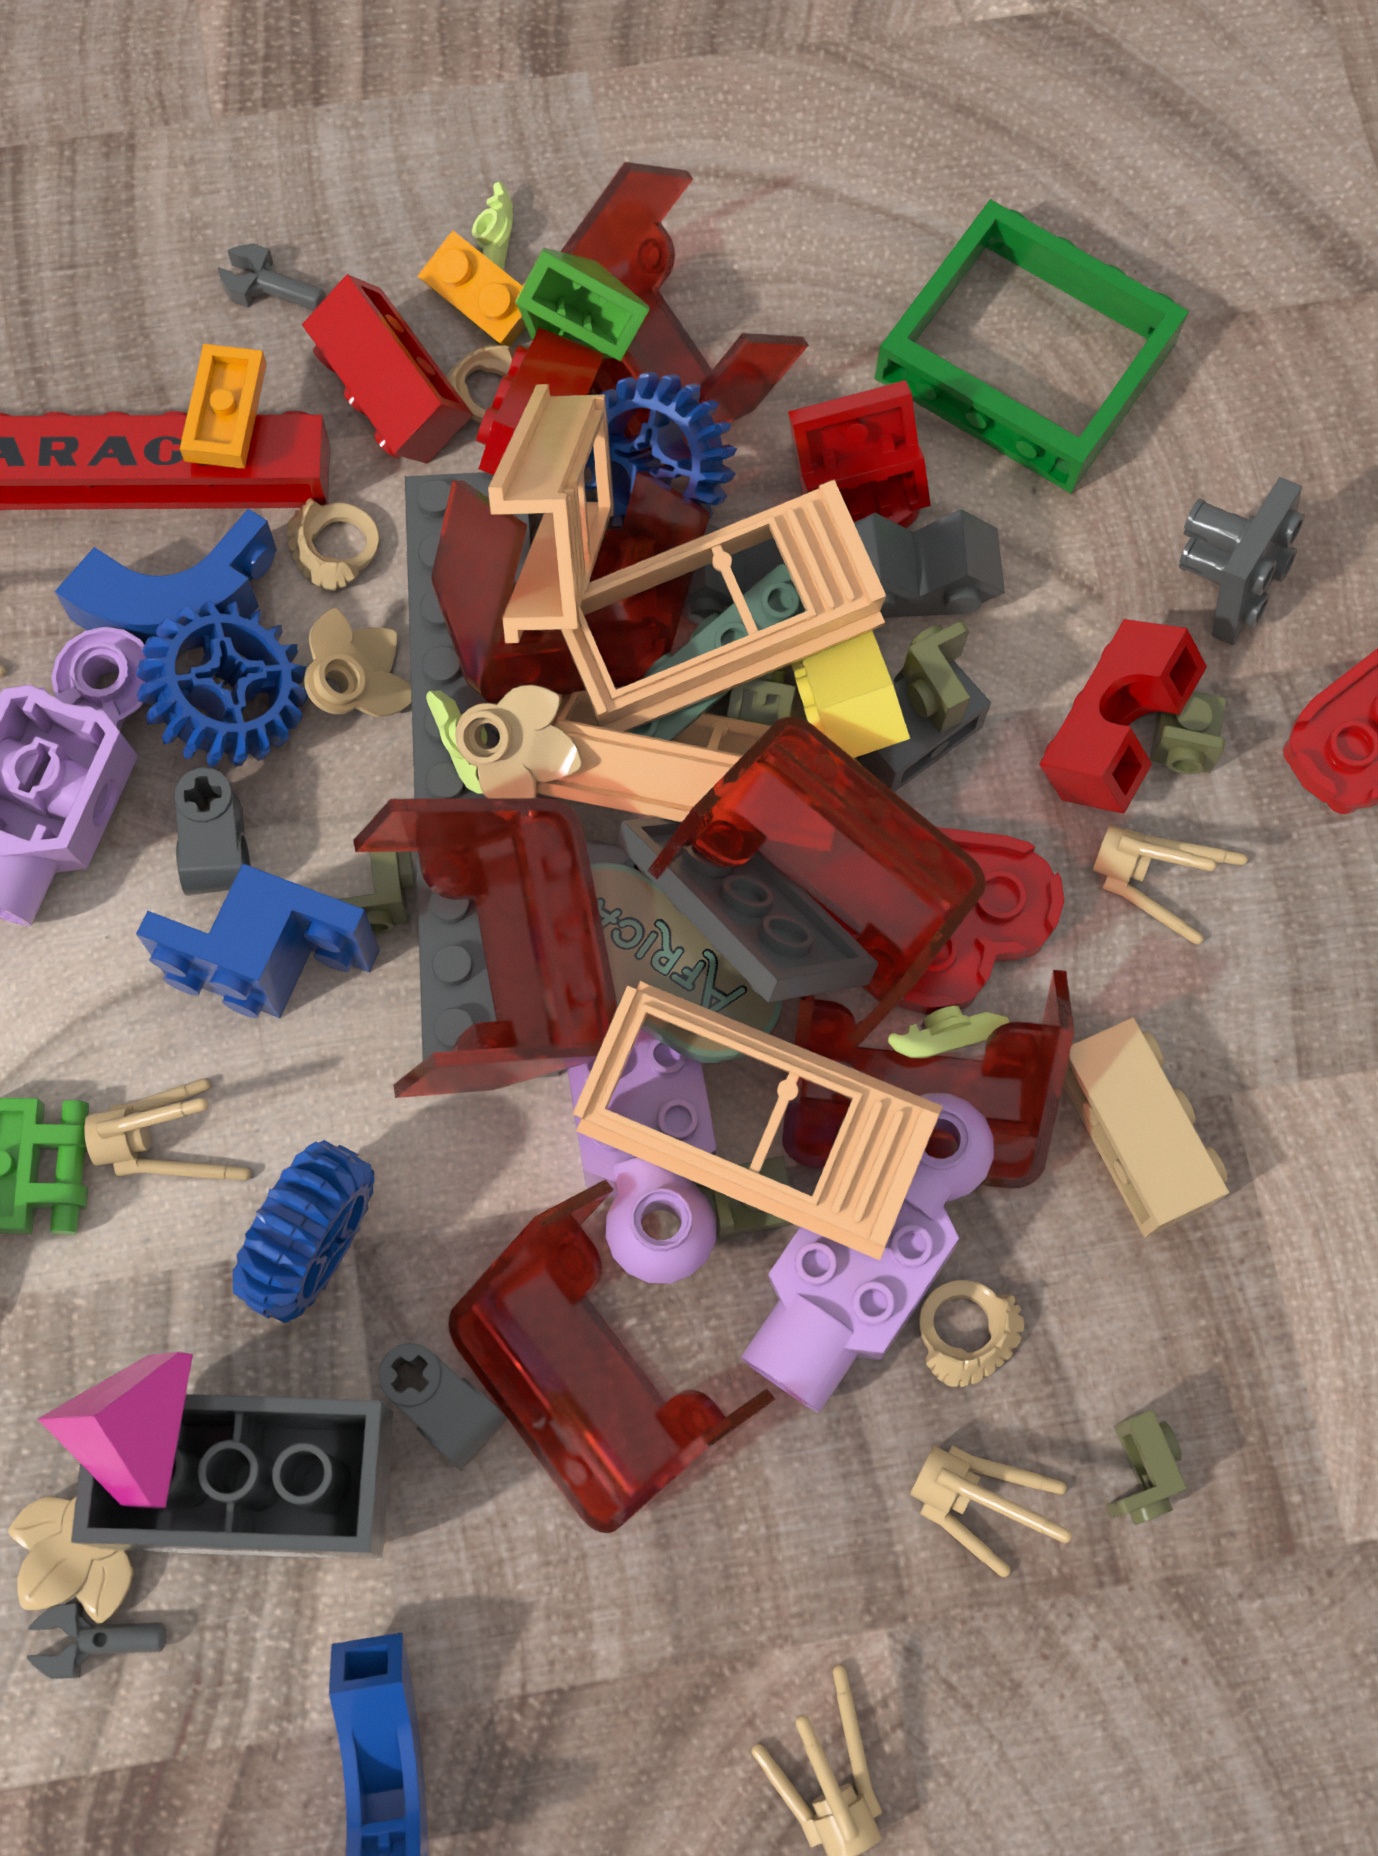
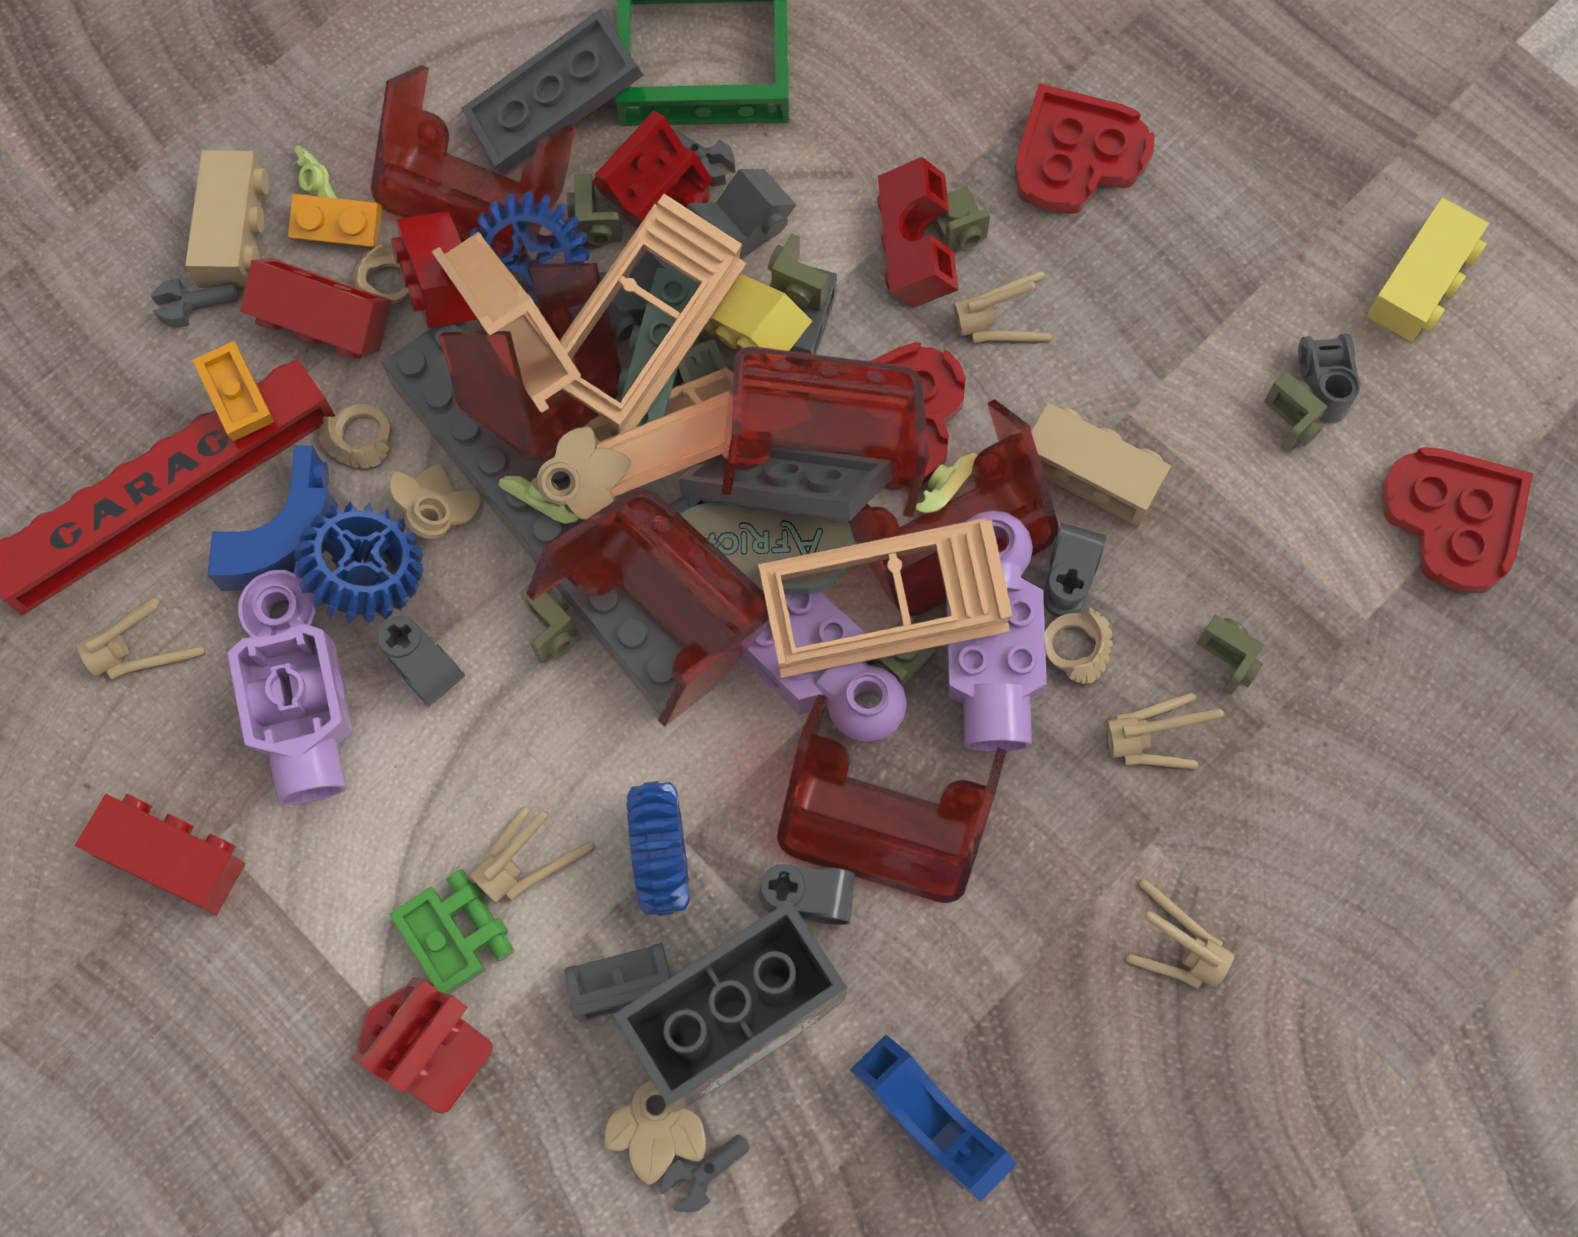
camera: 30 degrees left, 0 degrees up
(128, 1427) = (656, 1015): dark pink slope -> none
(130, 1330) = (615, 981): none -> dark grey hinge
(260, 943) = (502, 700): blue bracket -> none
(366, 211) = (226, 217): none -> tan brick
(580, 303) = (416, 188): bright green slope -> none
(758, 449) = (599, 226): none -> olive bracket
(818, 288) = (551, 91): none -> dark grey plate
(962, 478) = (718, 153): none -> dark grey bar
(1029, 1229) = (1072, 565): none -> dark grey piece
(1243, 554) = (920, 94): dark grey plate -> none

